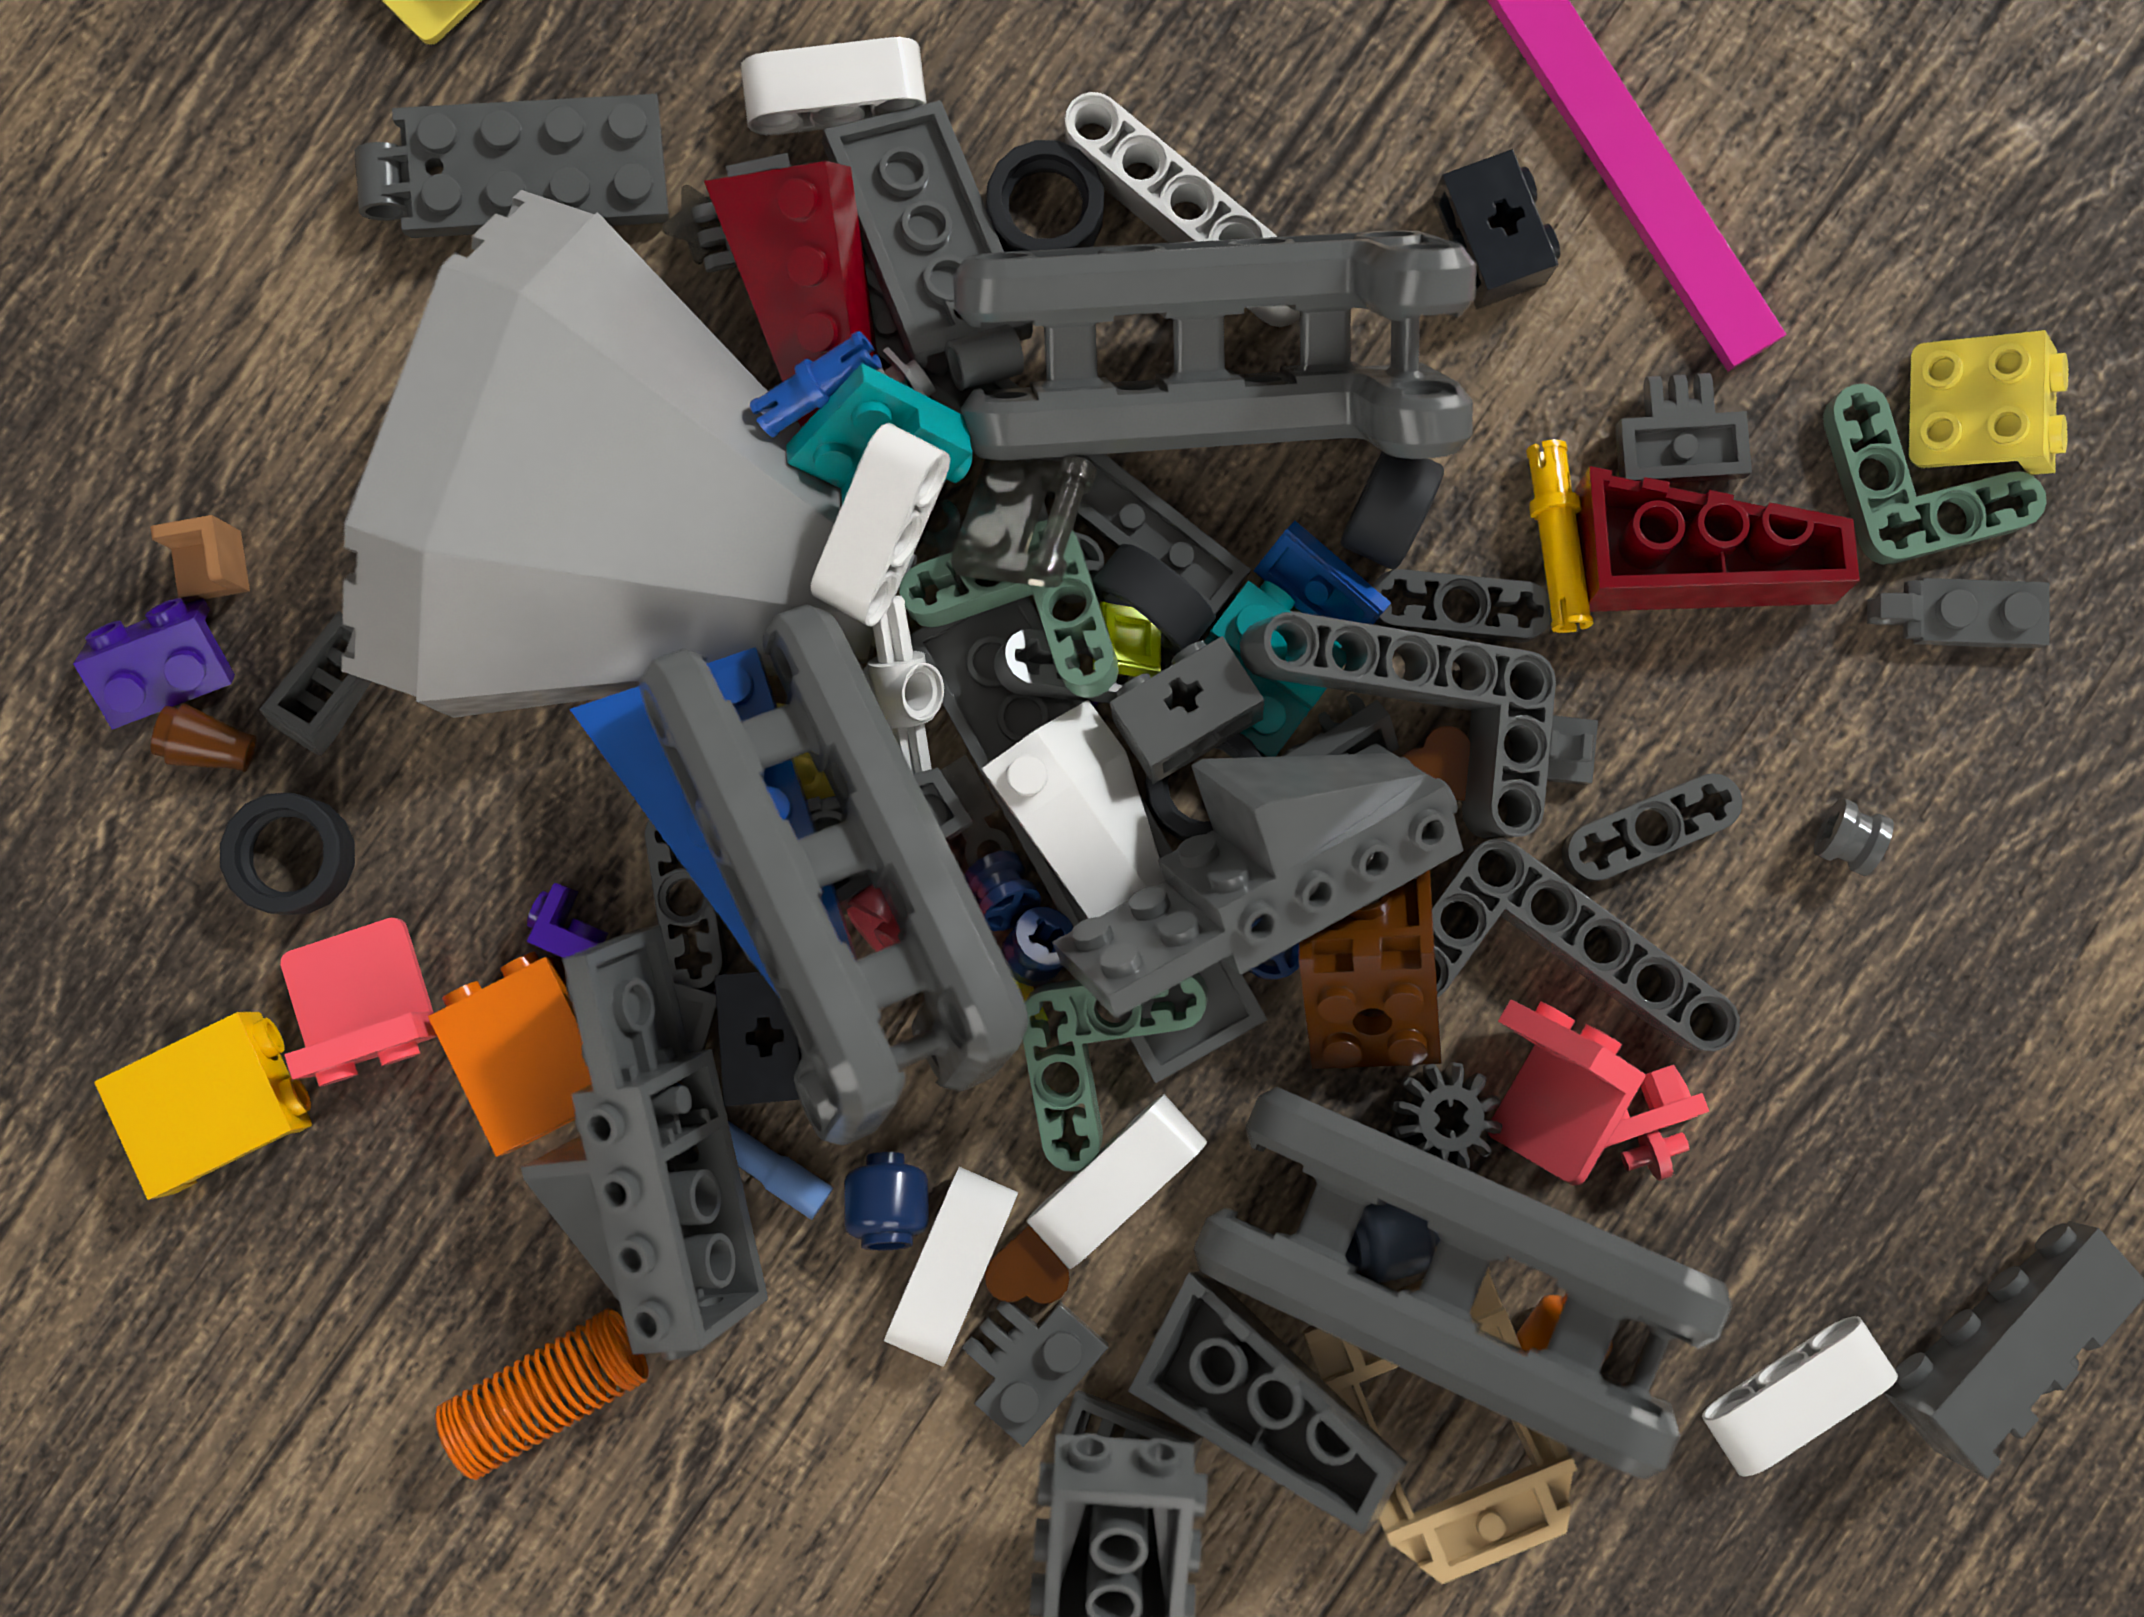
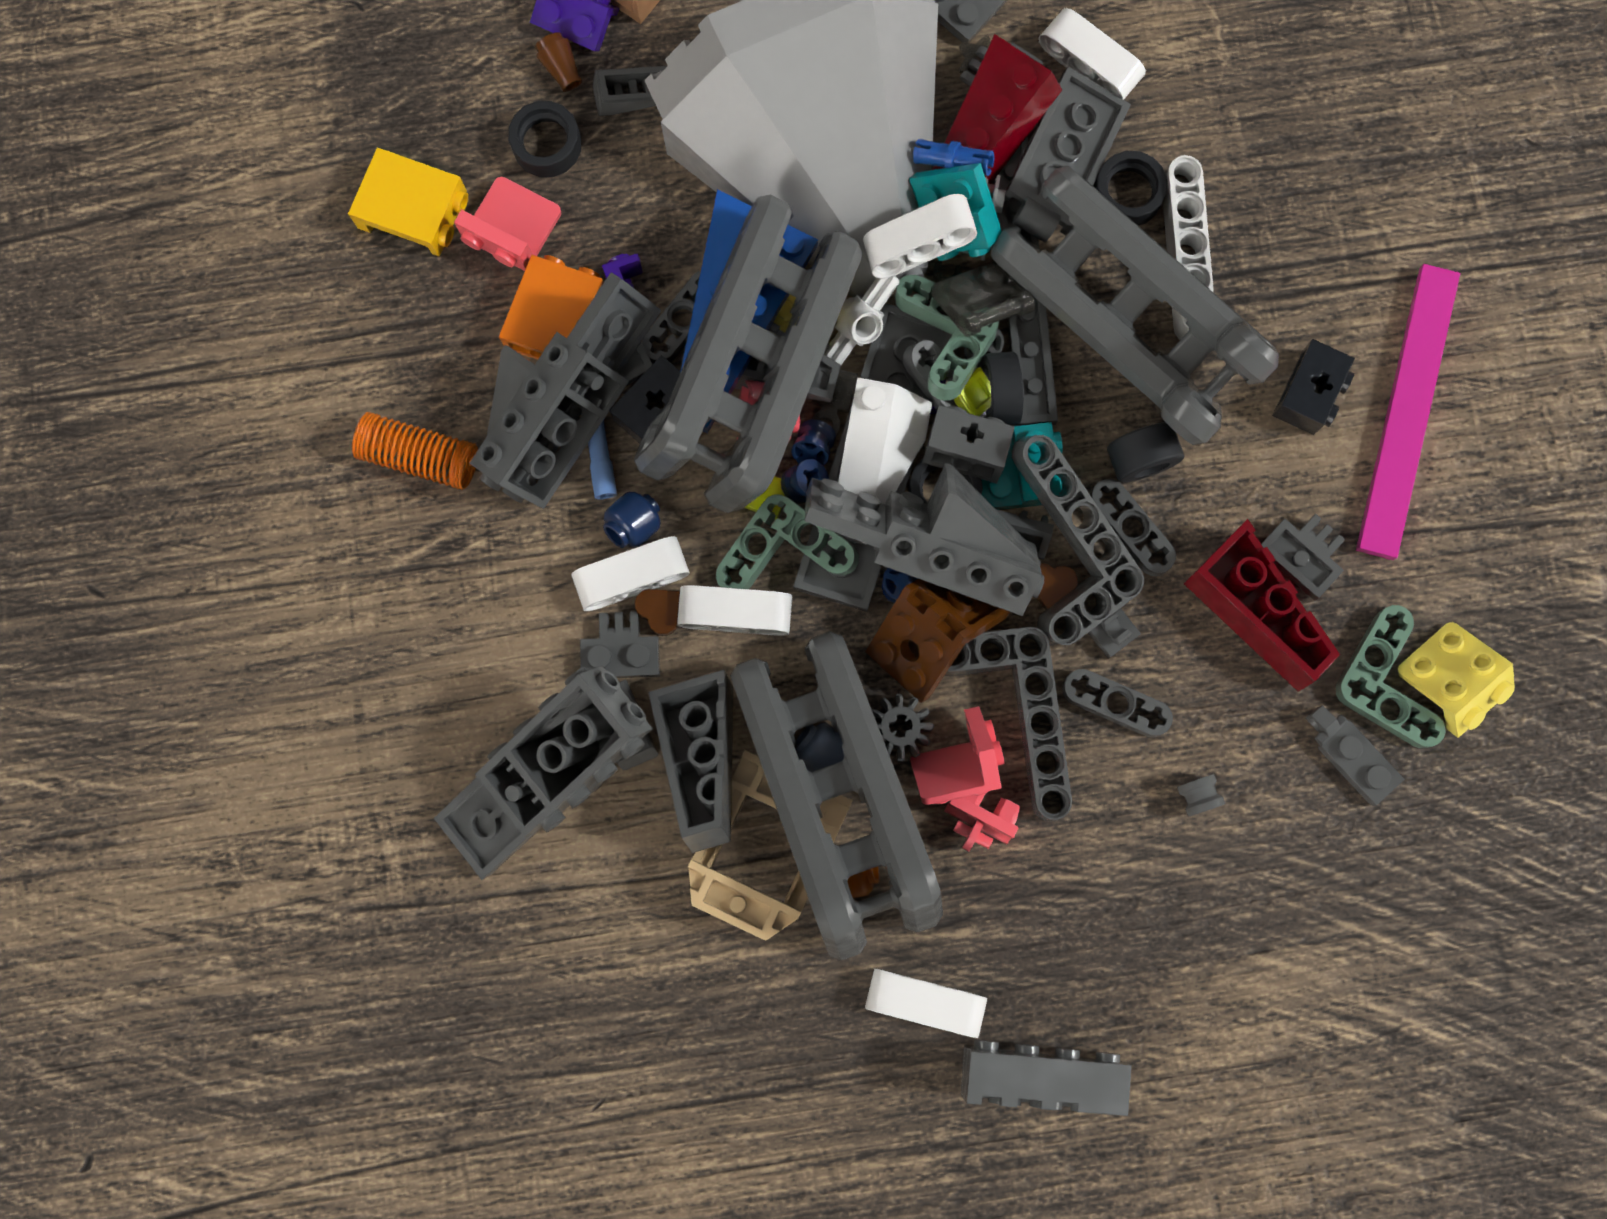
camera: 50 degrees right, 5 degrees down
(1319, 579) = (1082, 451): blue plate -> none
(1556, 512) = (1215, 529): yellow pin -> none

